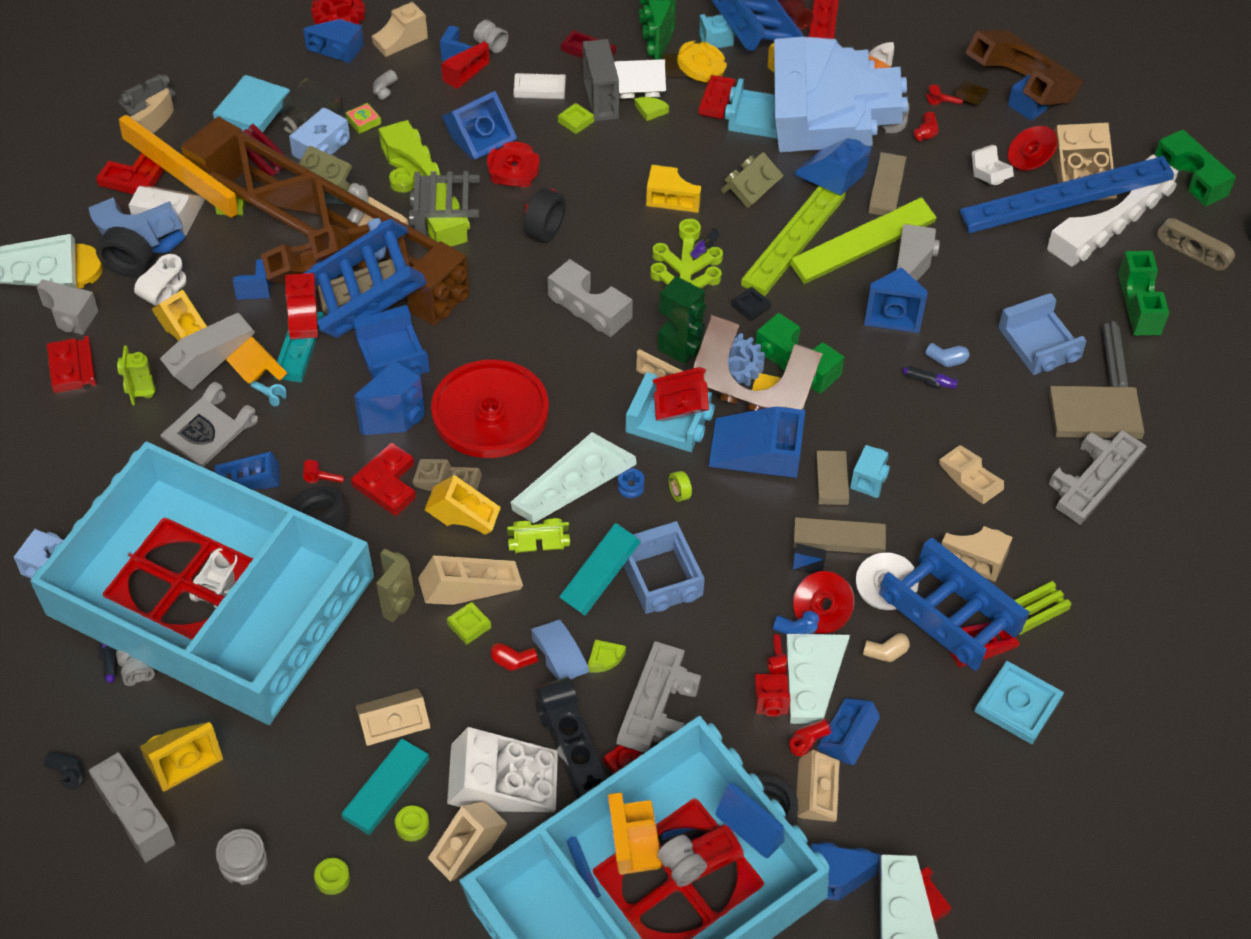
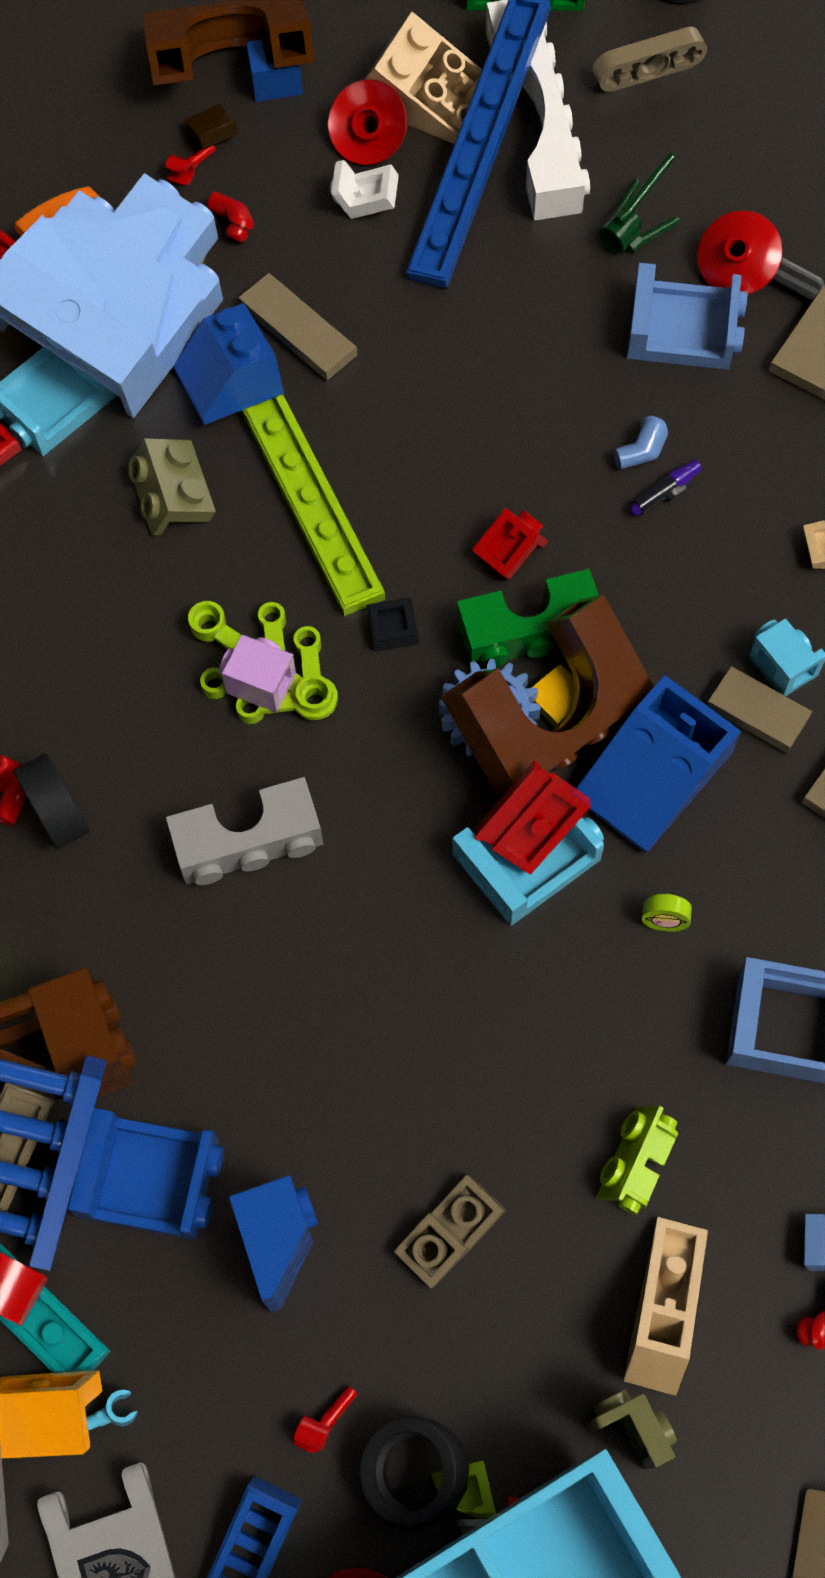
camera: 55 degrees left, 15 degrees up
(381, 480) = (394, 1338): red plate -> none
(461, 504) = (527, 1241): yellow arch -> none
(469, 623) = (732, 1346): lime tile -> none
(490, 408) = (374, 1096): red dish -> none
(574, 475) = (563, 1041): light aqua wing -> none
(600, 569) = (765, 1109): teal tile -> none
(631, 475) = (610, 960): blue bush -> none
(653, 365) = (445, 811): tan slope -> none
(670, 191) = (113, 602): yellow arch -> none
(675, 257) = (258, 672): none -> lavender brick
(683, 331) = (407, 734): dark green arch -> none
(705, 243) = (247, 613): piece -> none
(837, 324) = (510, 541): none -> red bracket
(860, 241) = (379, 420): lime tile -> none
(884, 52) = (62, 178): white tile -> none
(896, 302) = (539, 443): blue slope -> none
(917, 249) = (451, 374): light grey slope -> none
(1073, 282) = (623, 224): none -> dark green plant
(1107, 339) = (758, 262): none -> red dish
(1145, 307) = (722, 183): green arch -> none

